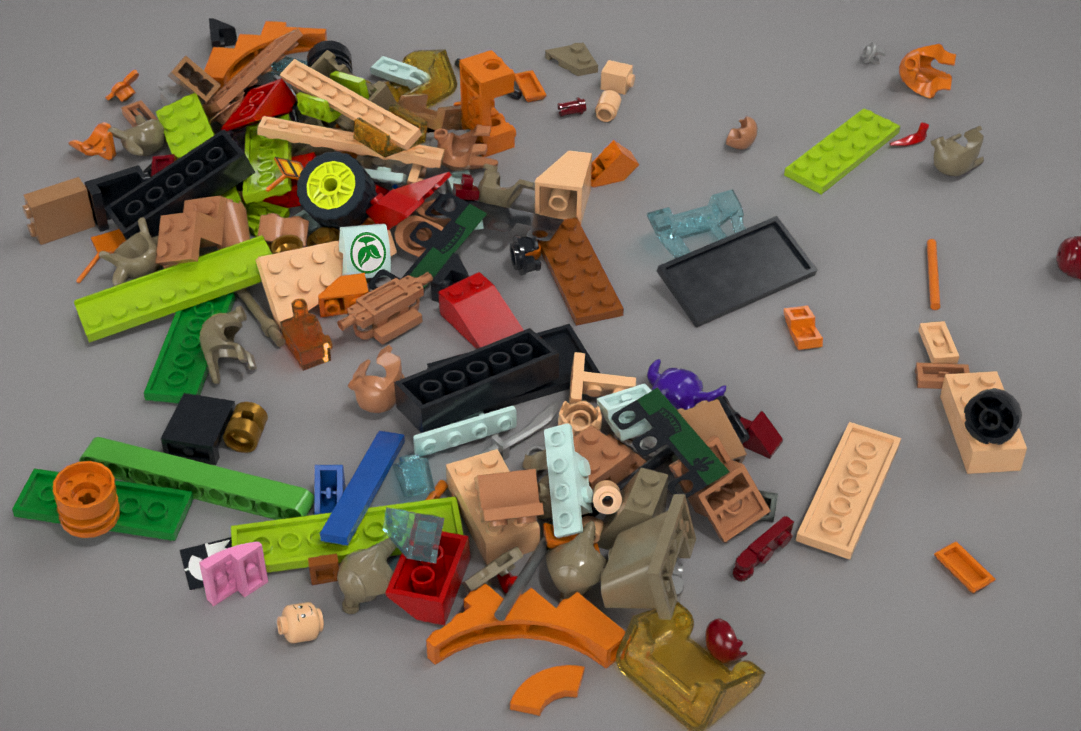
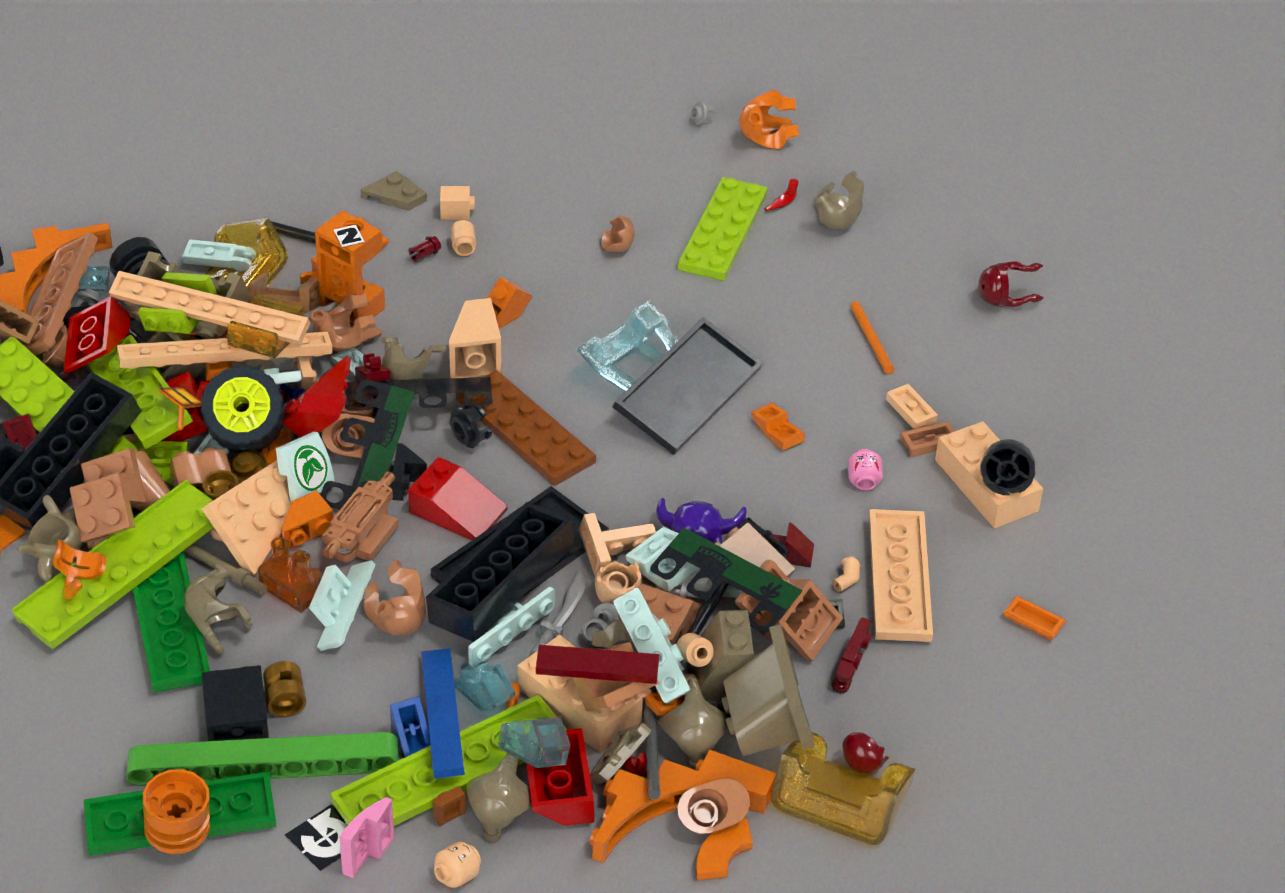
camera: 25 degrees left, 0 degrees up
(133, 267) = (92, 561): none -> orange helmet
(331, 366) = (338, 601): none -> light aqua bracket
(484, 70) = (348, 235): none -> sticker
(493, 479) = (597, 664): none -> dark red tile
(552, 644) = (713, 806): none -> nougat piece
(802, 476) = (850, 576): none -> light nougat arm
(864, 385) = (865, 469): none -> bright pink head

